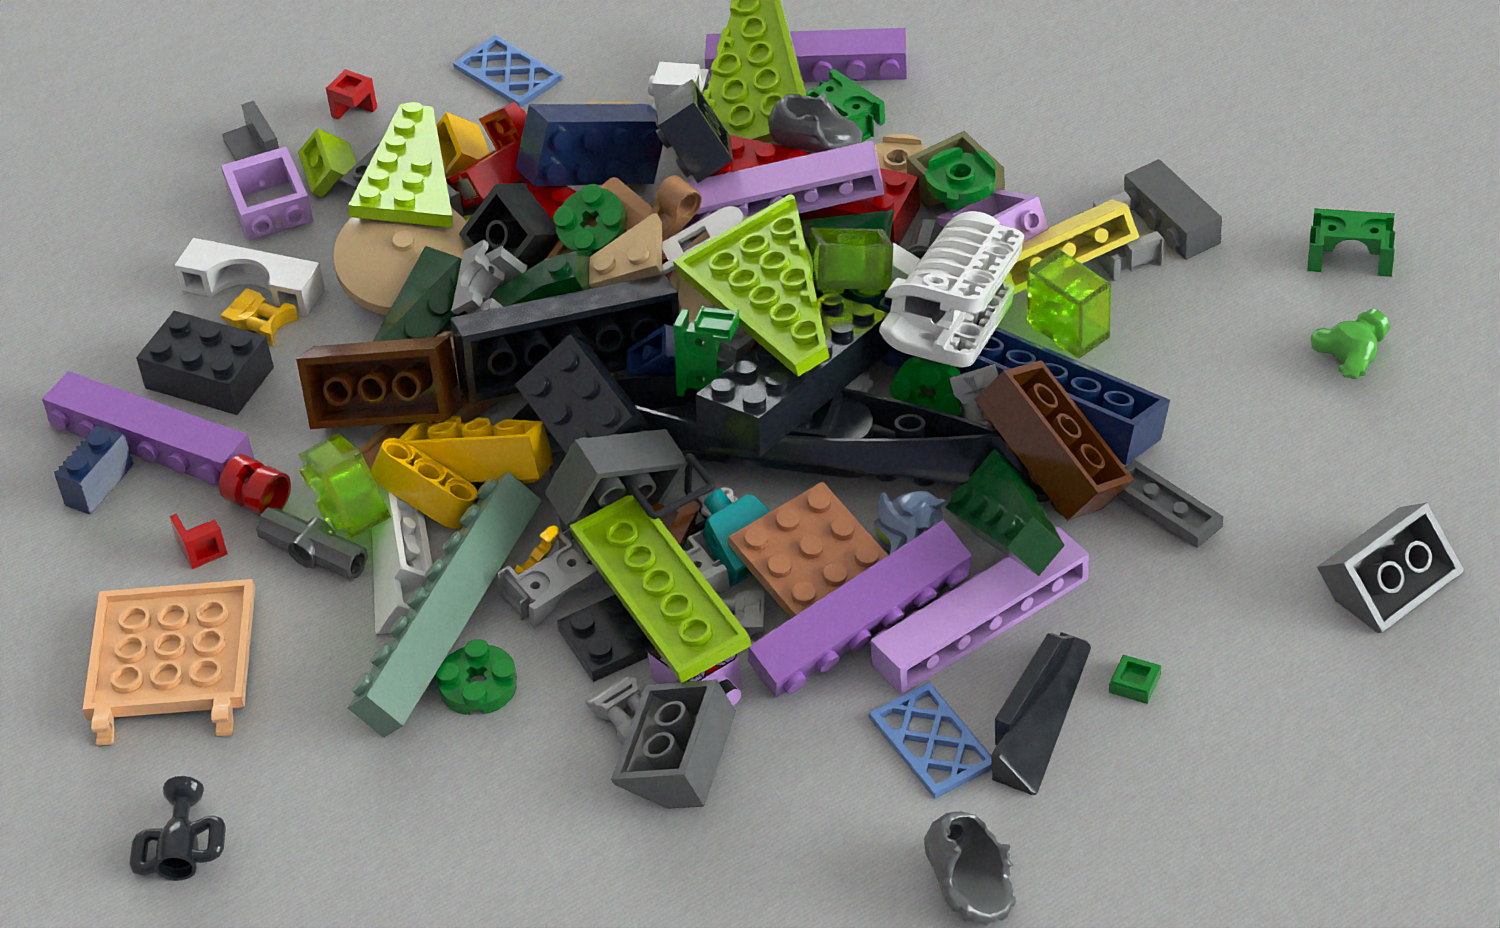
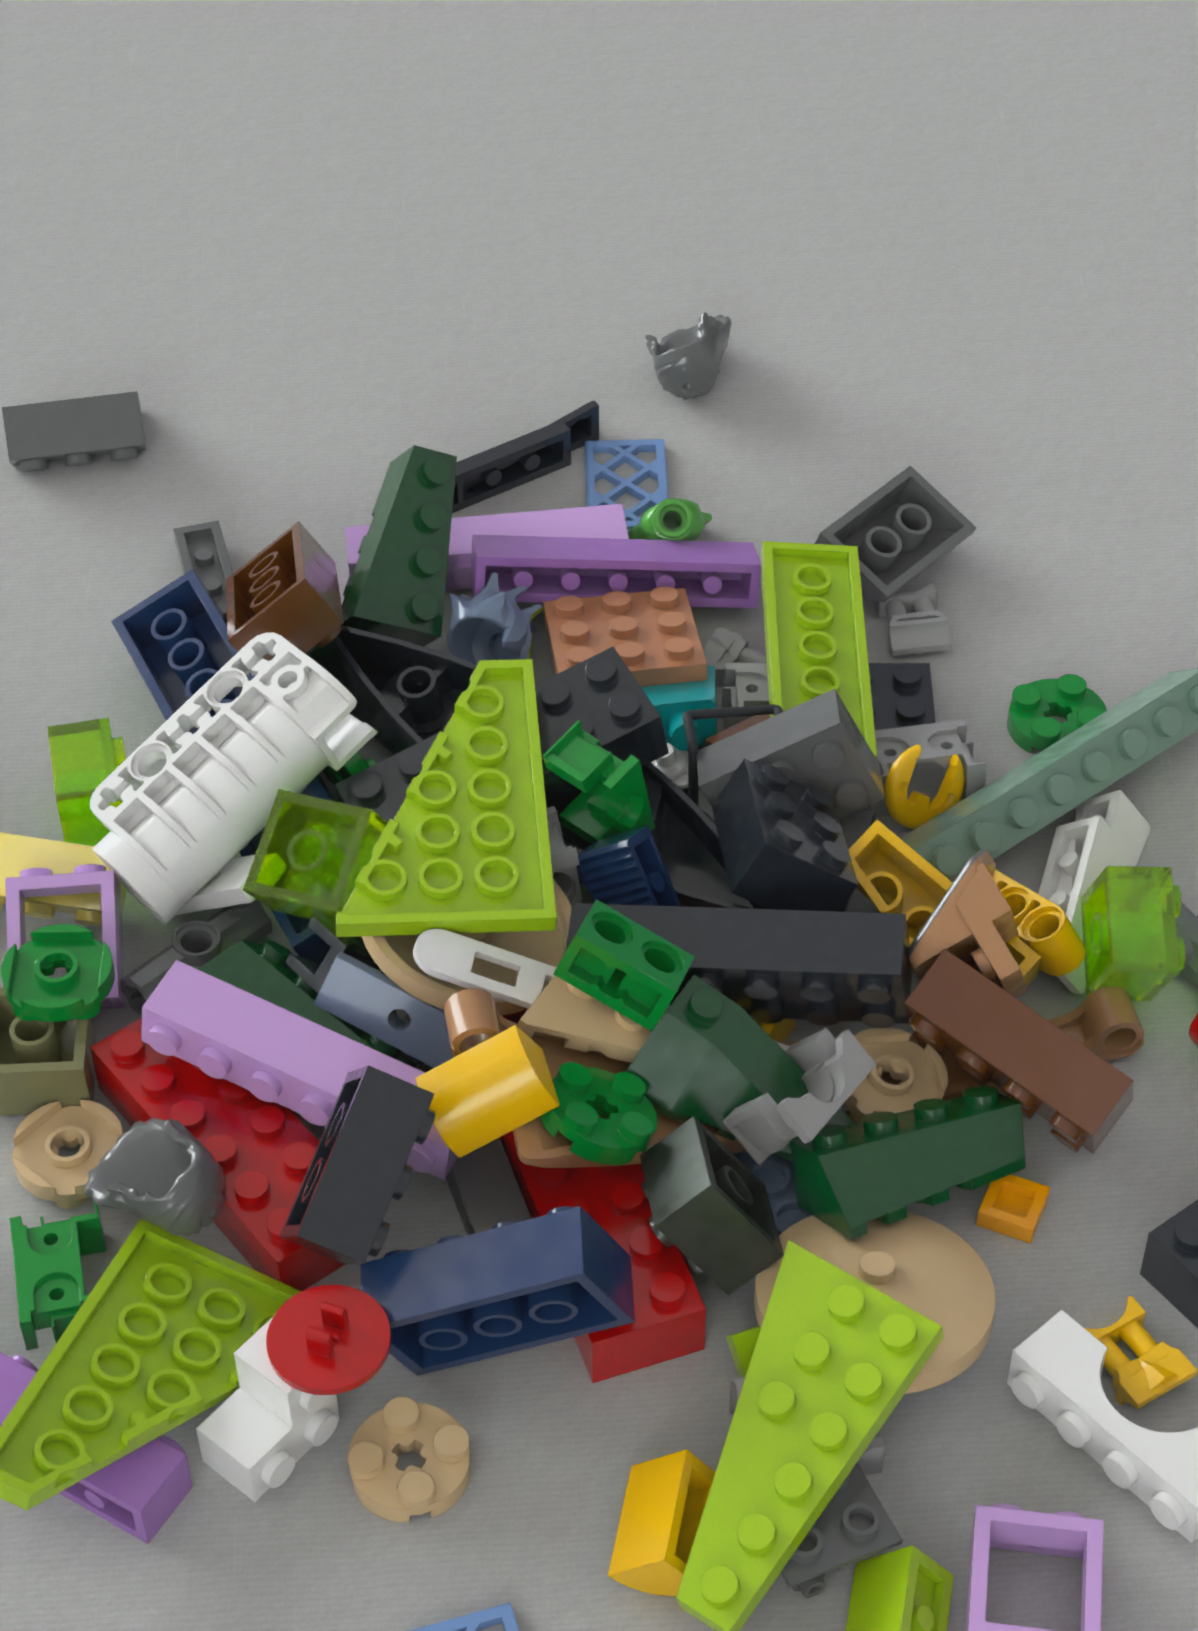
camera: 155 degrees left, 0 degrees up
(427, 395) = (974, 925): none -> medium nougat piece
(497, 167) = (588, 1421): red brick -> none
(612, 247) = (624, 965): none -> green brick
(640, 184) = (489, 1090): none -> yellow brick
(652, 81) = (328, 1339): none -> red piece
(852, 680) = (671, 521): none -> bright green animal
(1135, 679) = (389, 448): green tile -> none

